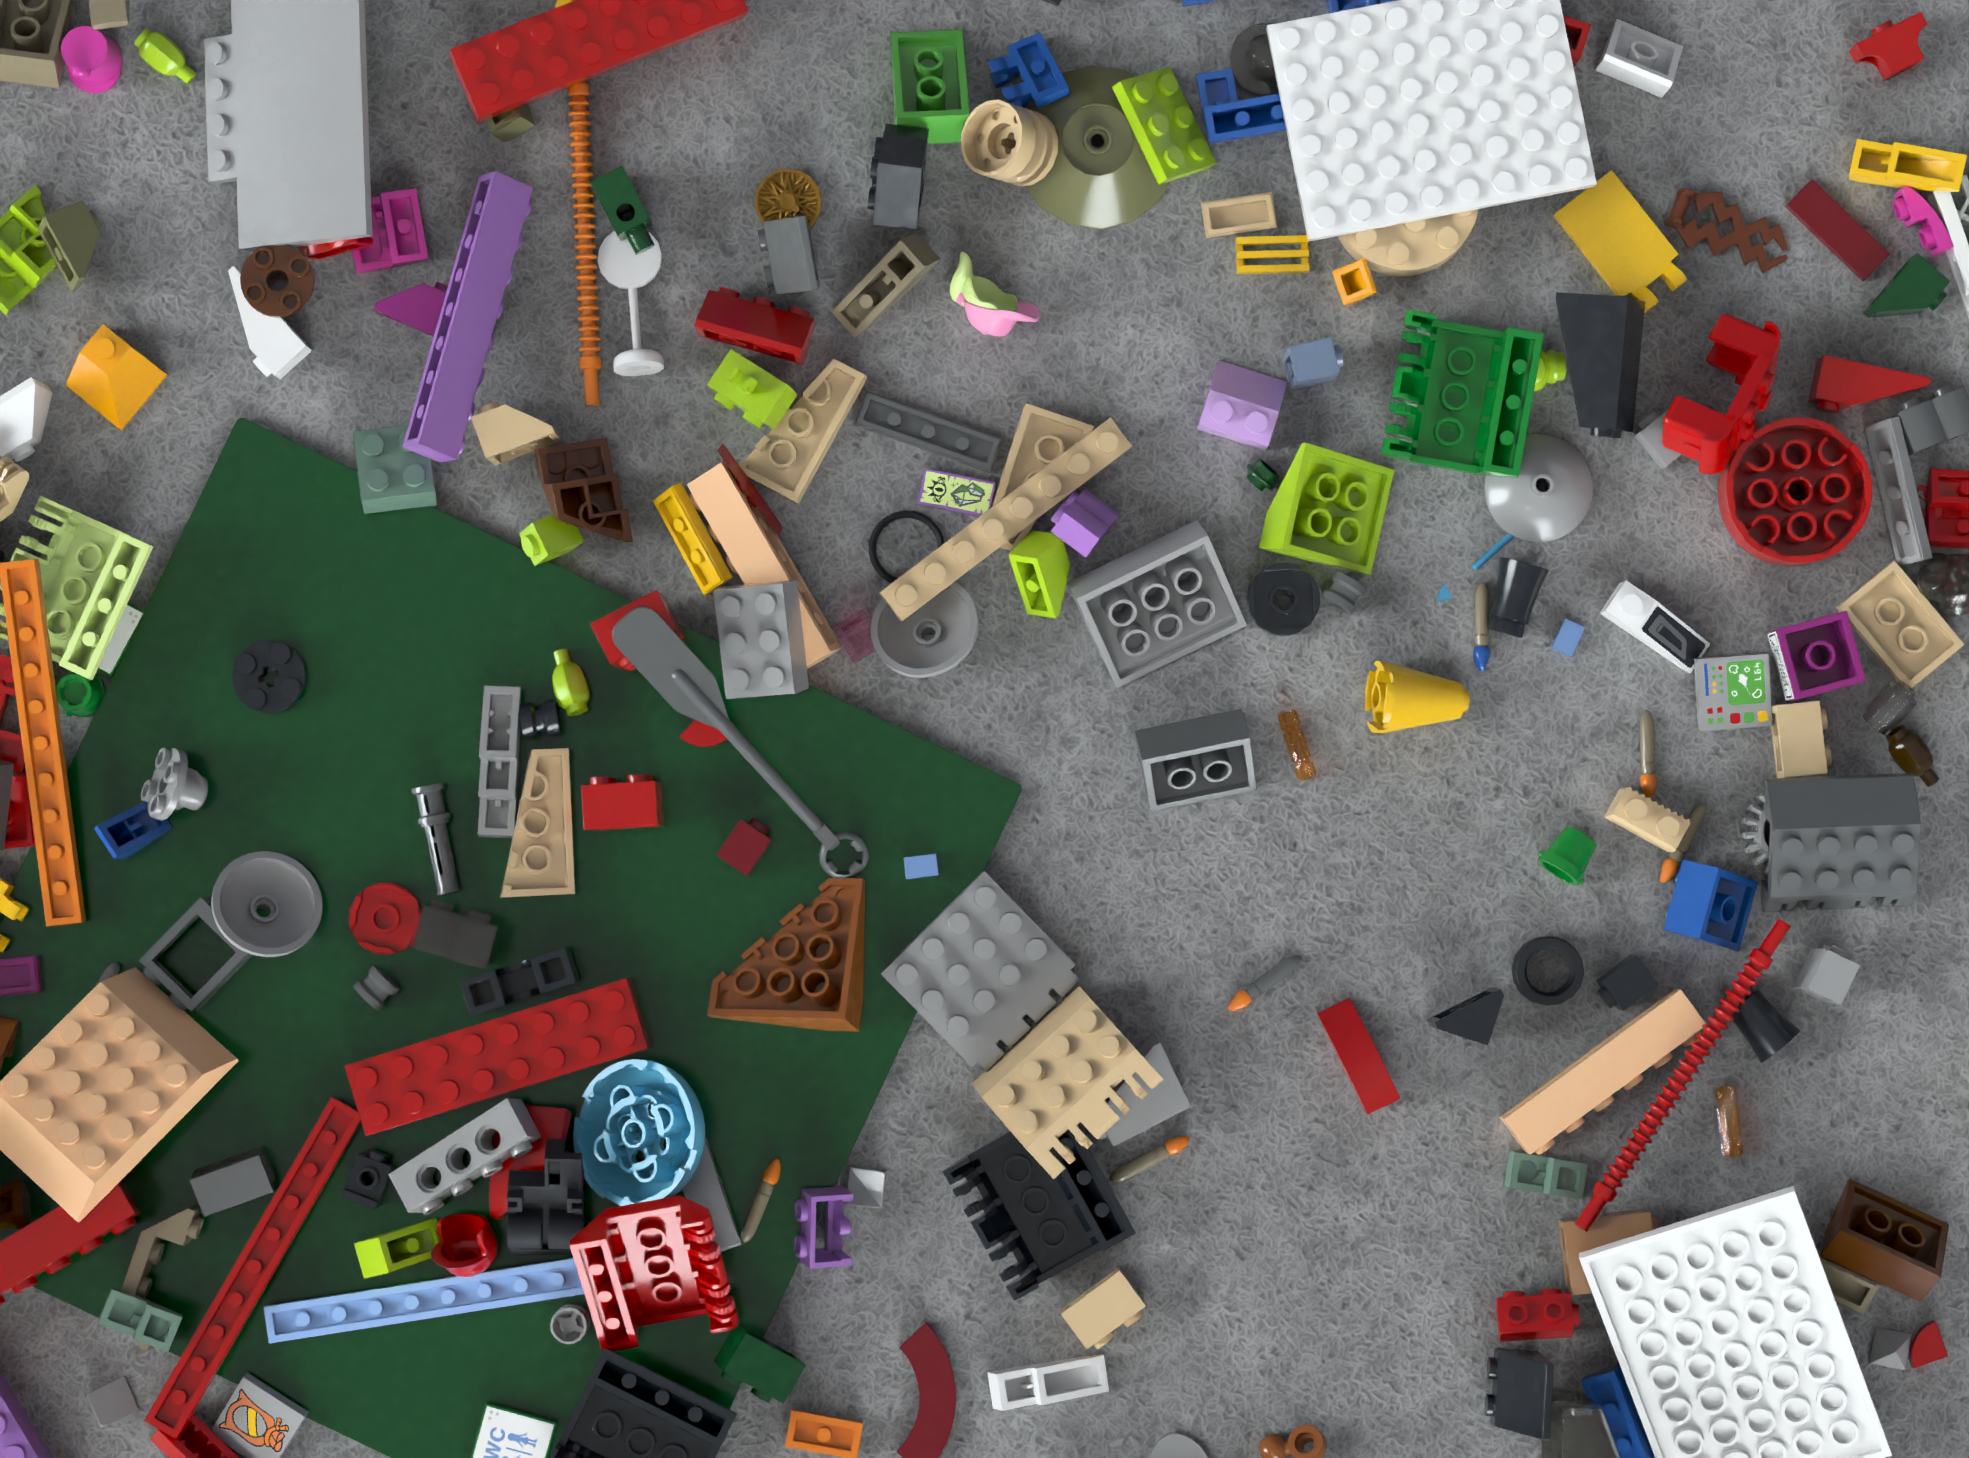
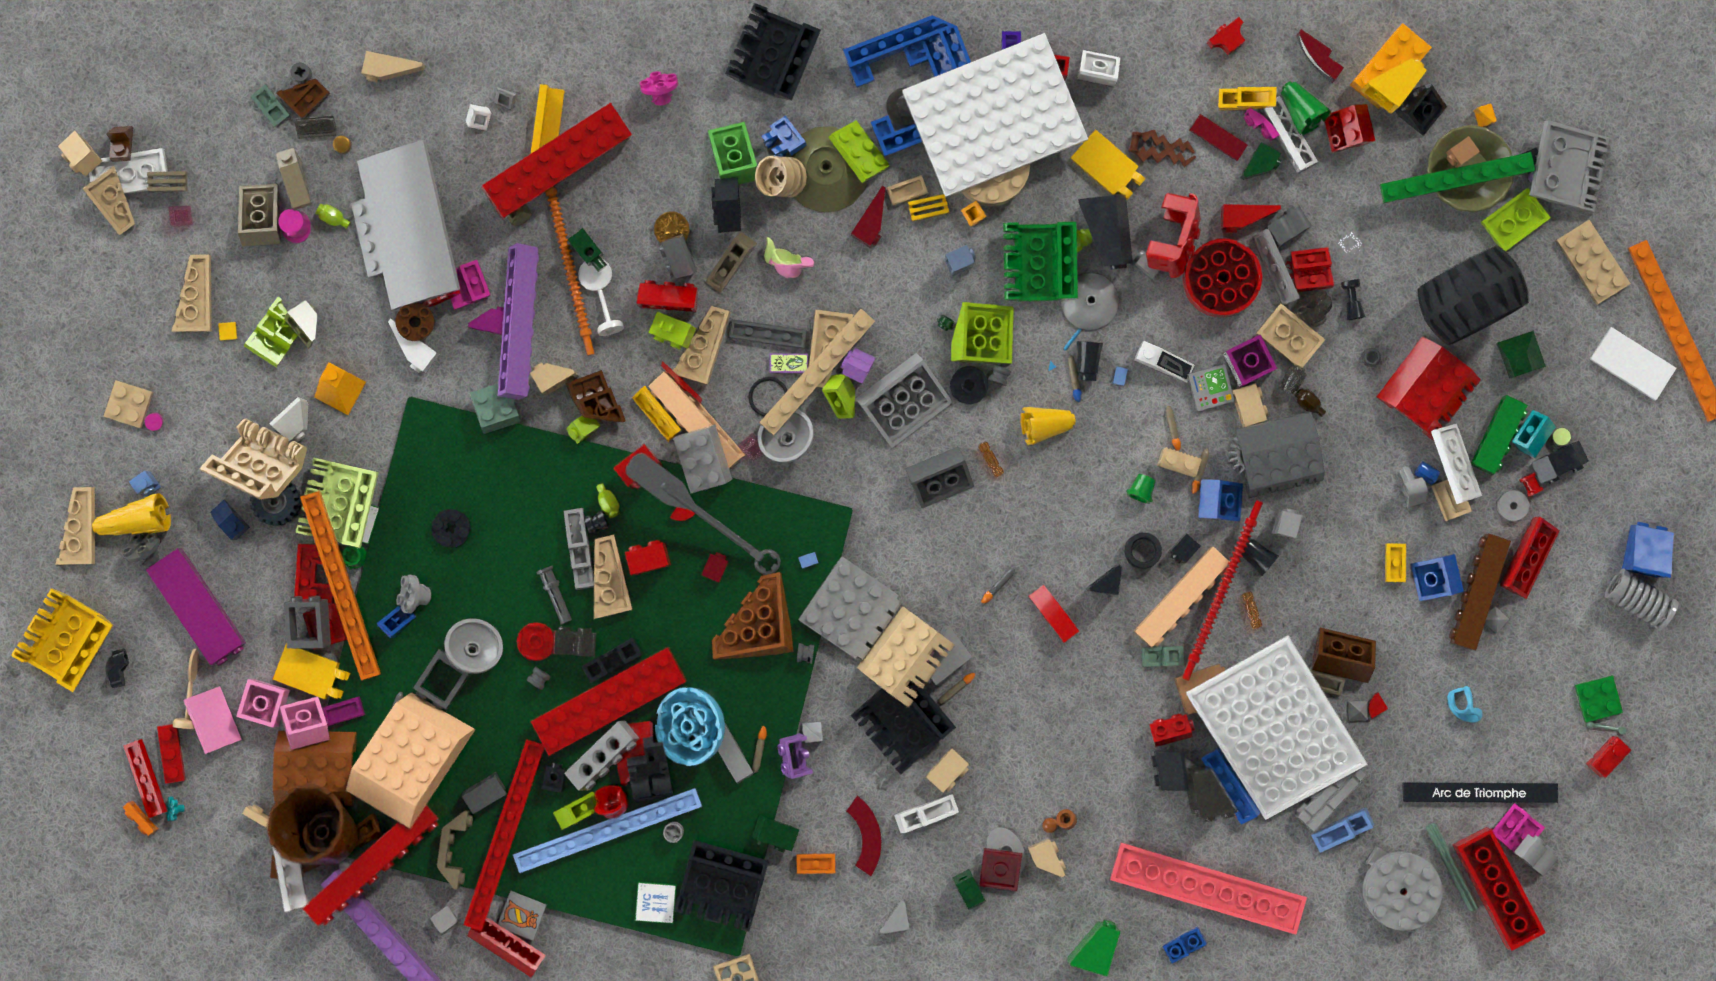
camera: 15 degrees left, 0 degrees up
(140, 1319) = (450, 872): sand green slope -> none
(651, 1268) = (710, 794): red slope -> none
(881, 1038) = (805, 653): none -> dark grey wheel
(1157, 265) = (869, 225): none -> dark red slope
(1242, 405) = (928, 288): lavender slope -> none

